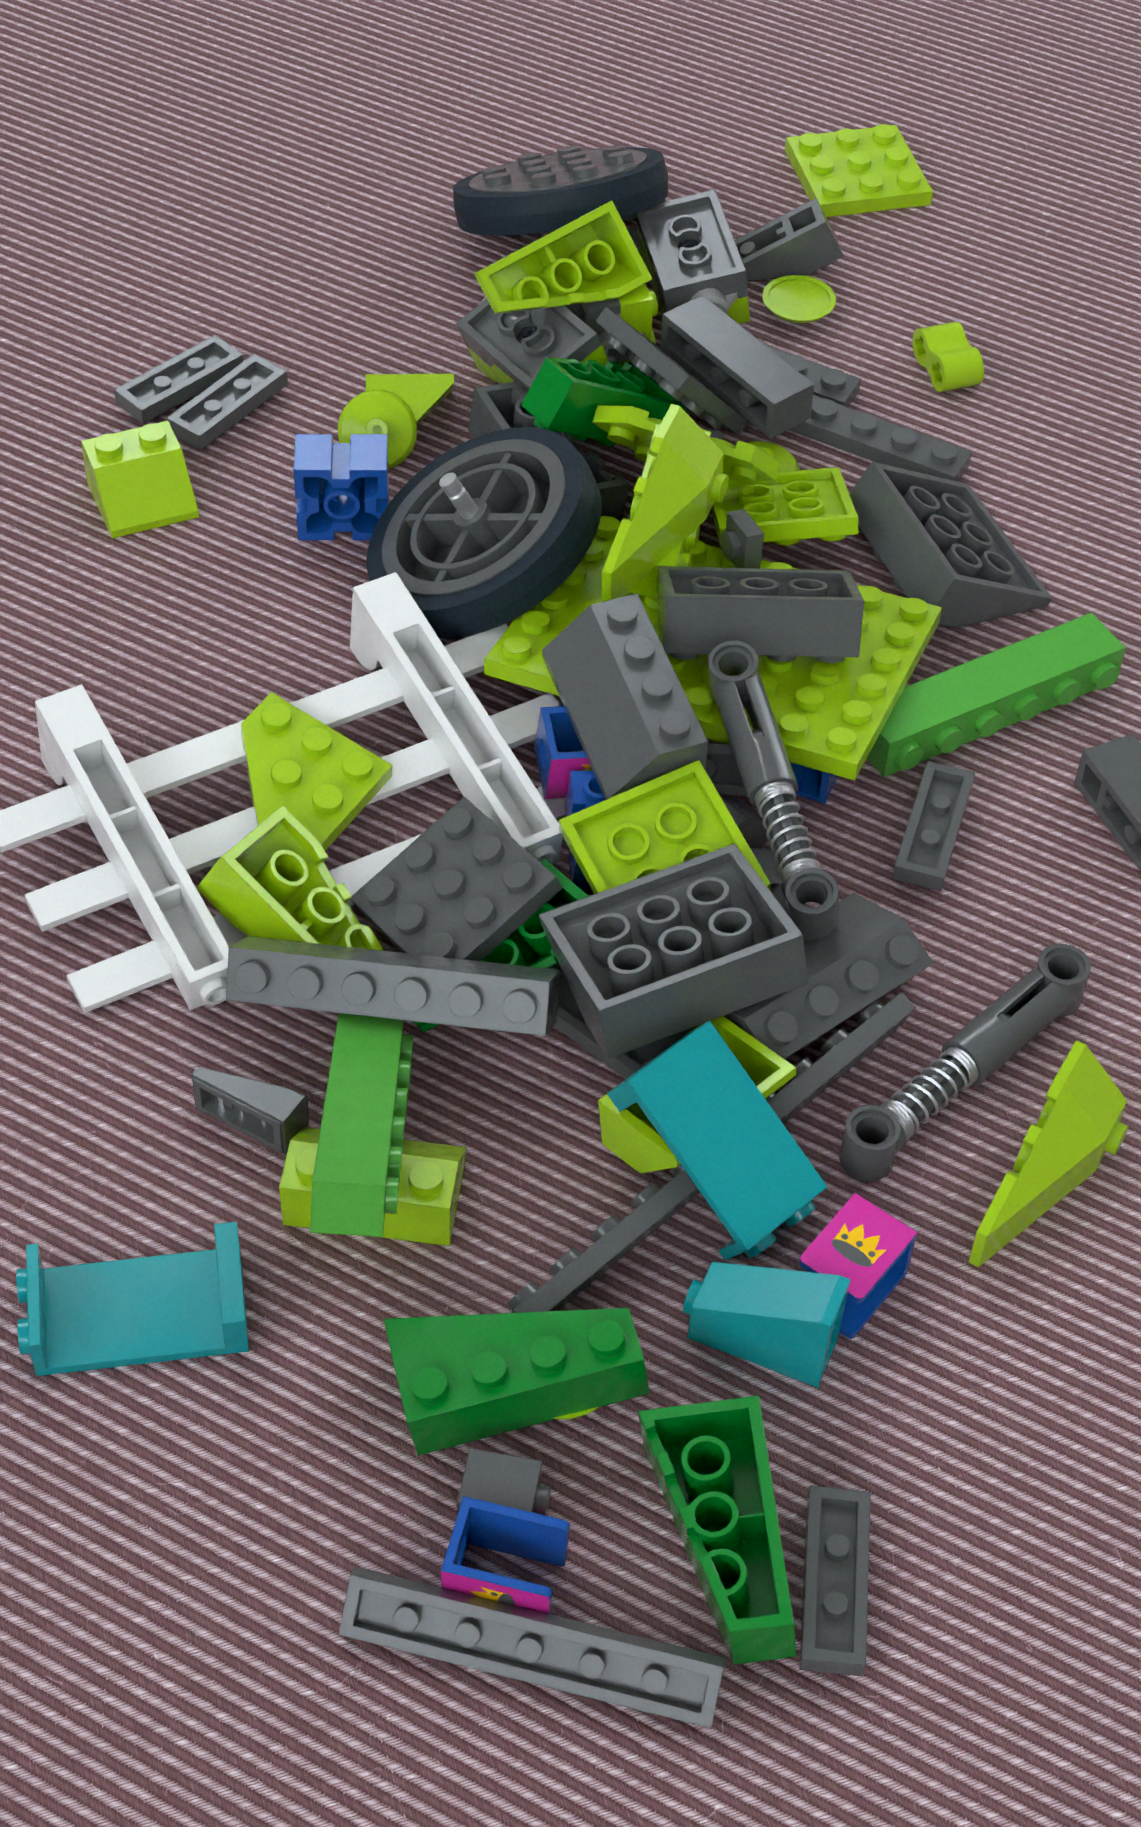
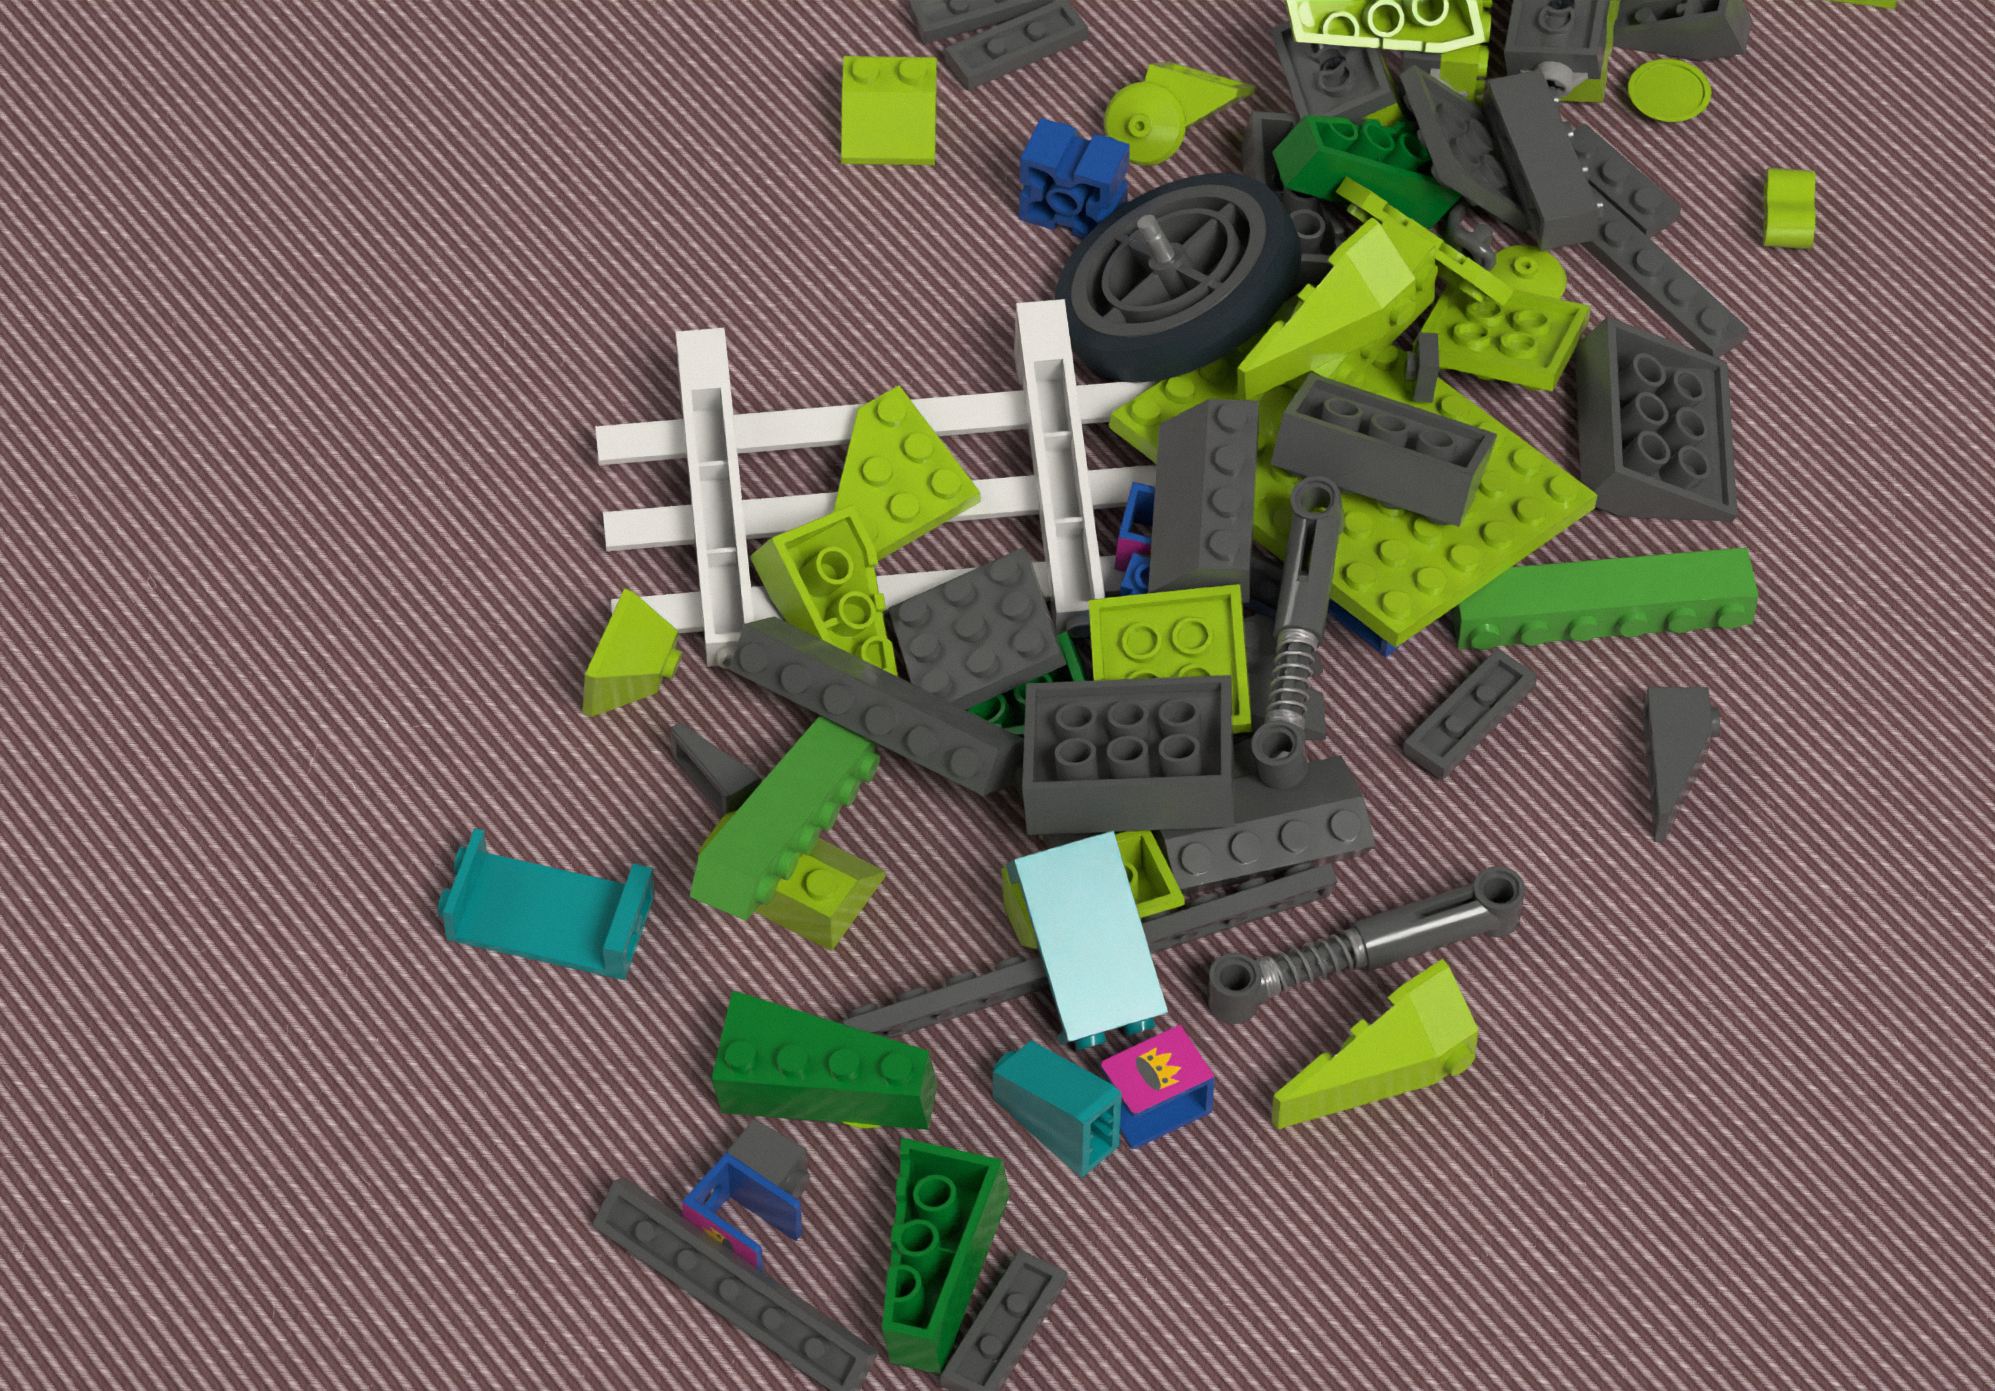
camera: 25 degrees right, 5 degrees up
(120, 1019) = (630, 657): none -> lime slope

